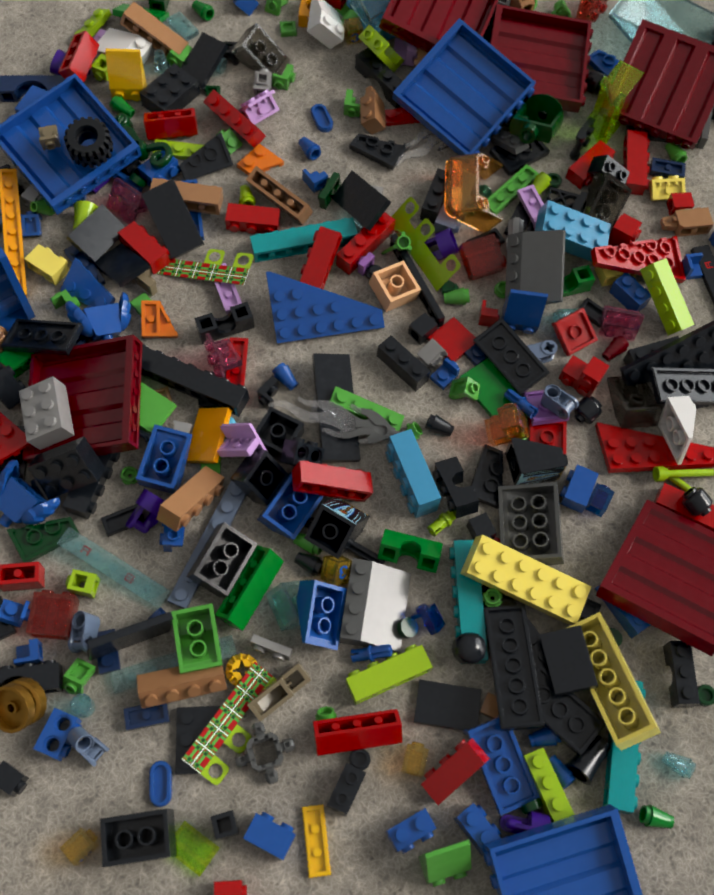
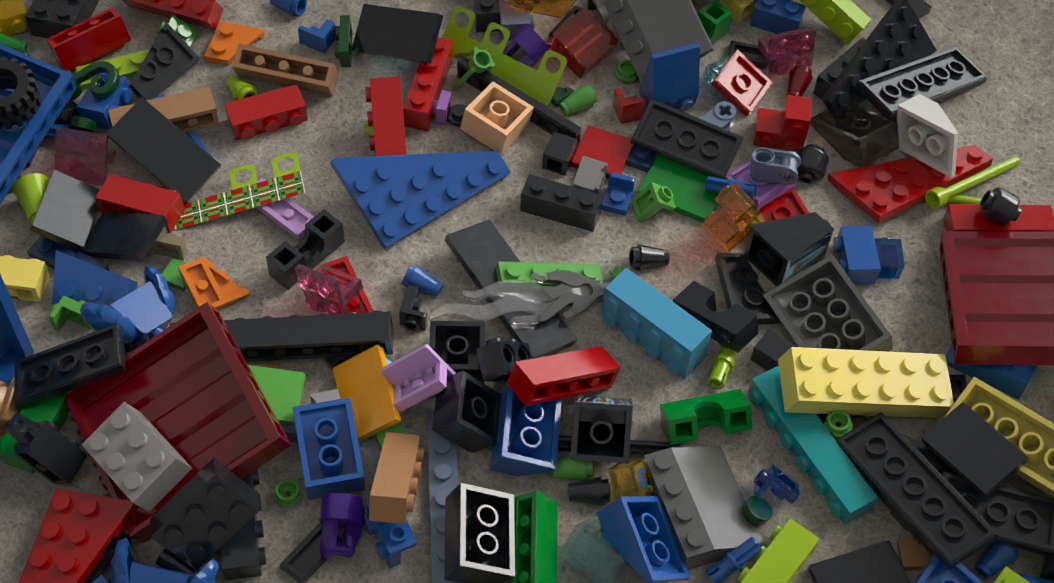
camera: 25 degrees left, 10 degrees down
(297, 240) = (338, 115): teal brick -> none
(469, 648) = (849, 494): black hair -> none

